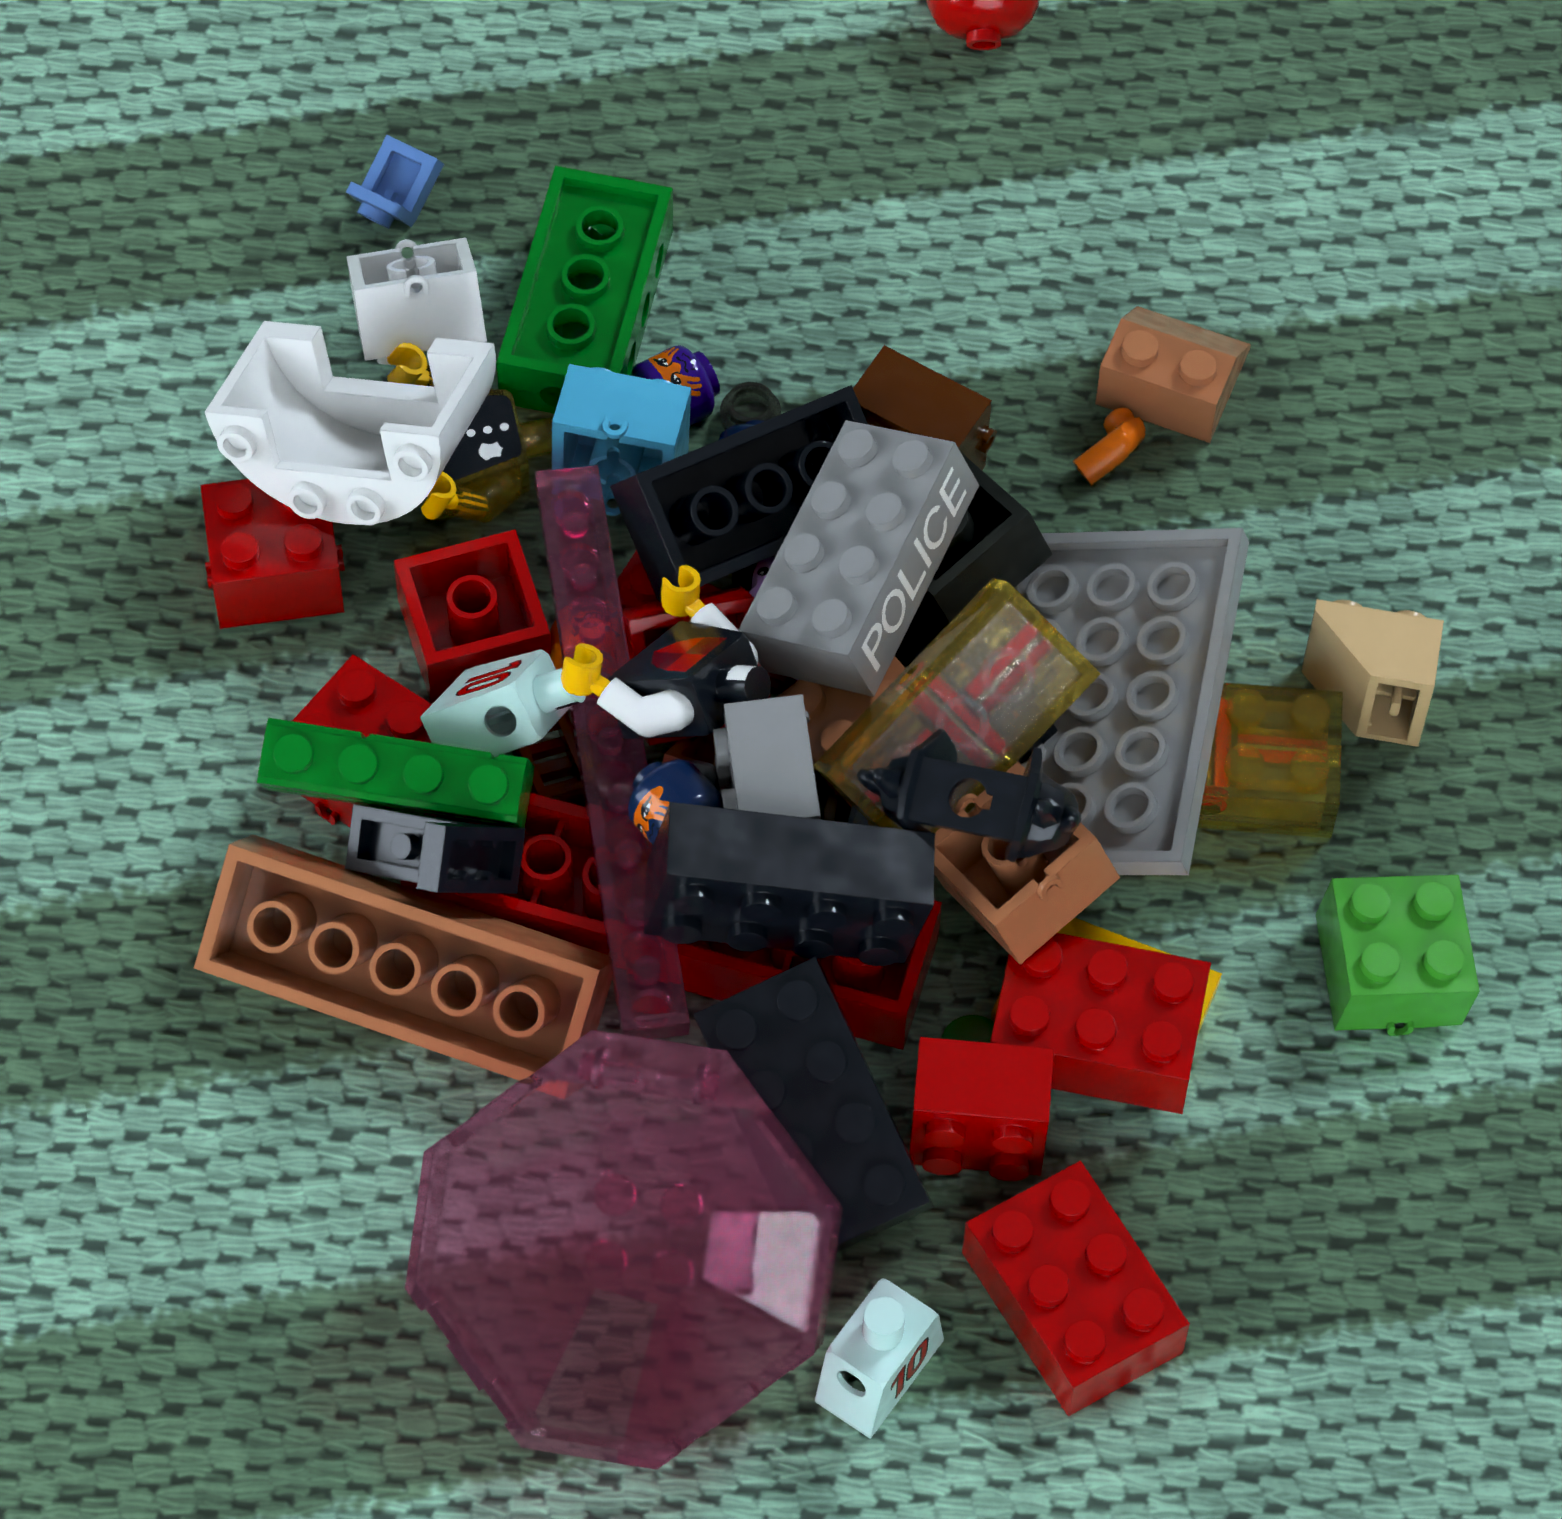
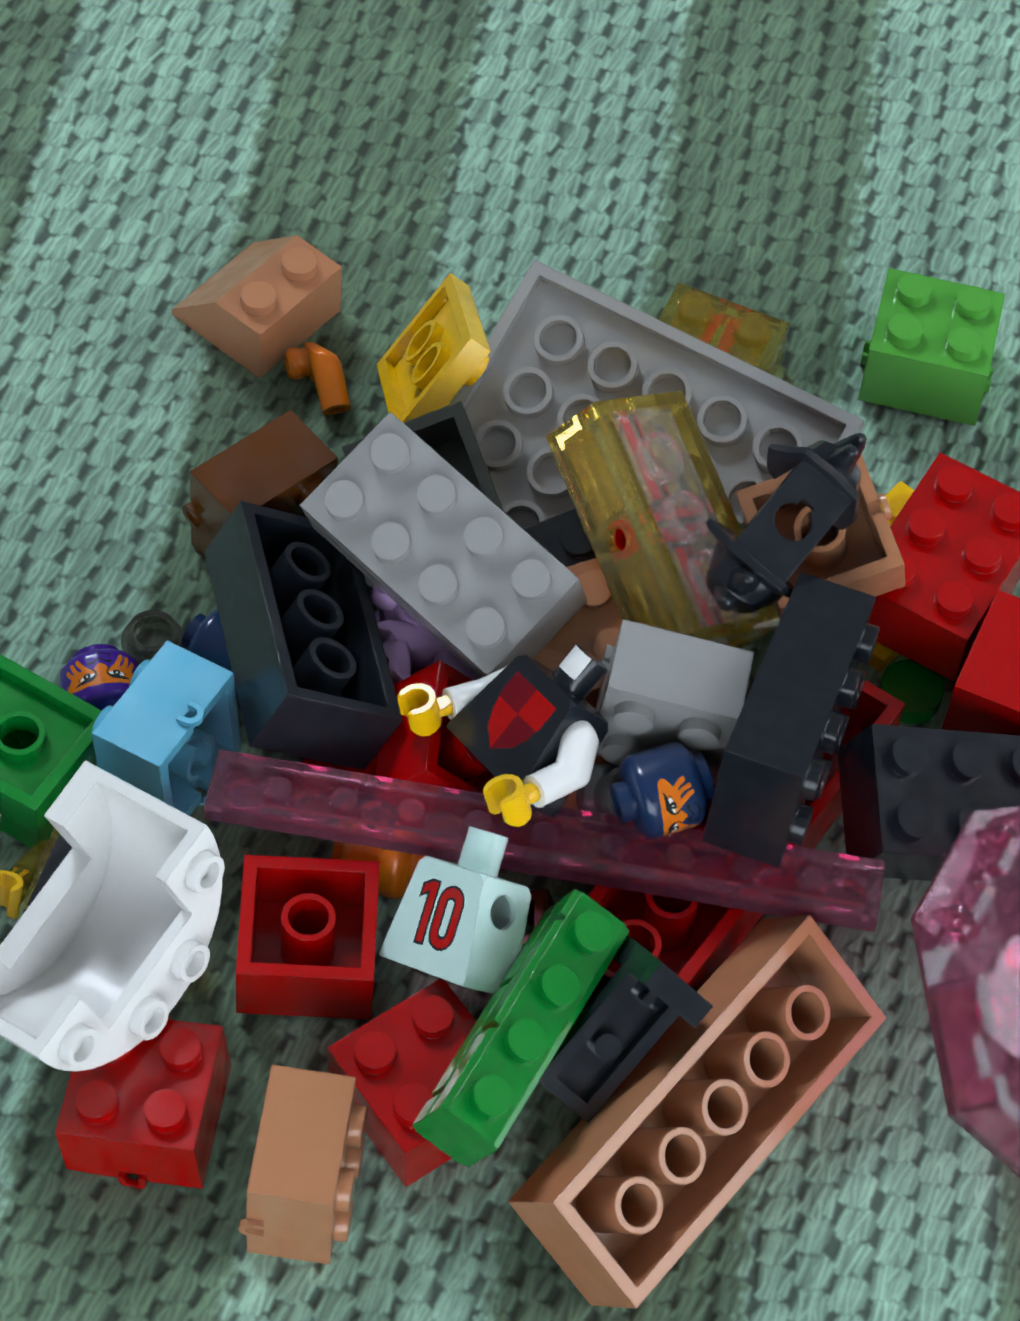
camera: 75 degrees left, 5 degrees down
(236, 672) = (304, 1165): none -> nougat brick
(1146, 507) = (435, 353): none -> yellow plate
(1379, 663) = (665, 241): tan slope -> none

